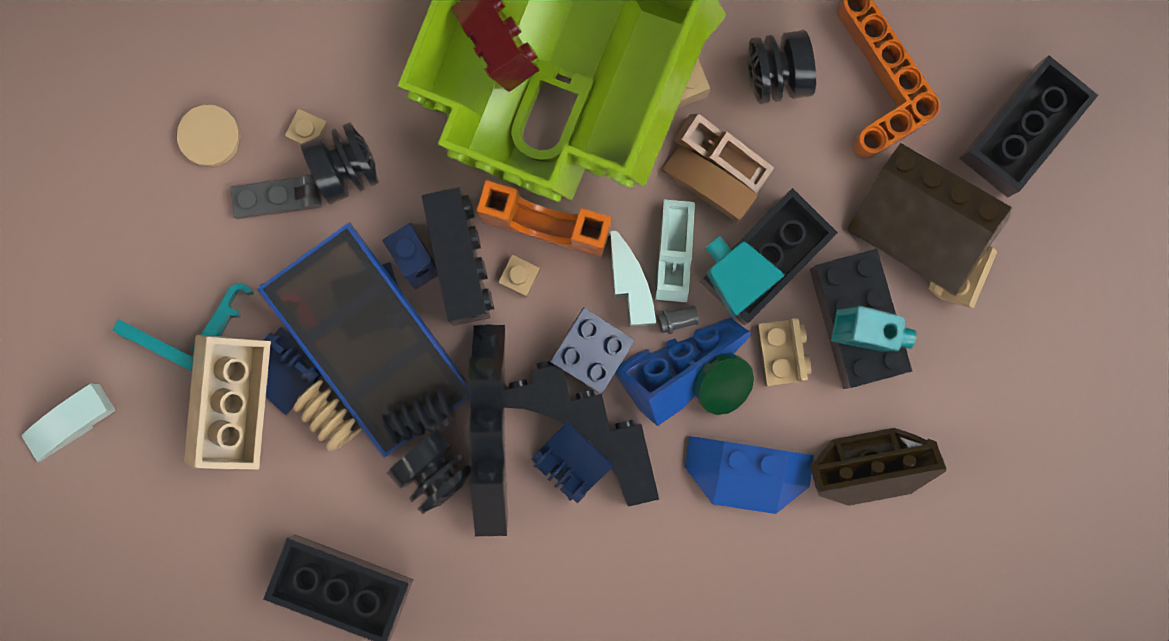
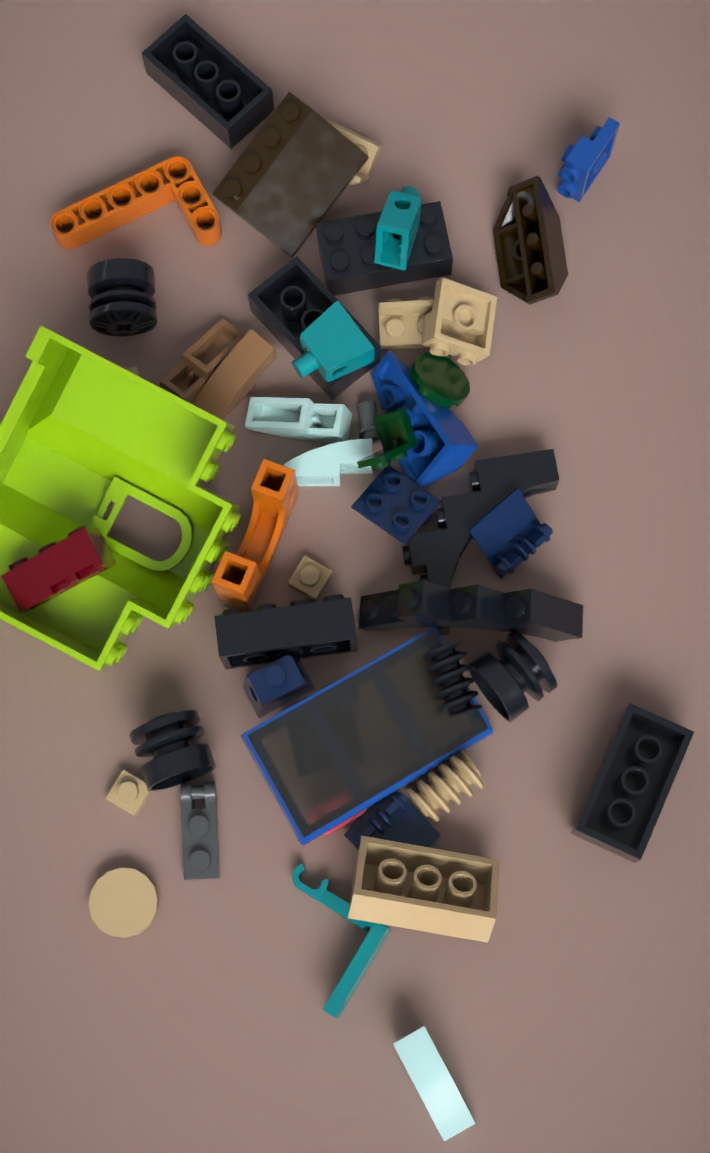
camera: 80 degrees left, 10 degrees down
(655, 347) = (395, 436): none -> dark green bracket
(747, 474) = (531, 369): blue wedge -> none
(784, 400) = (460, 322): none -> tan plate
(971, 515) = (586, 160): none -> blue plate

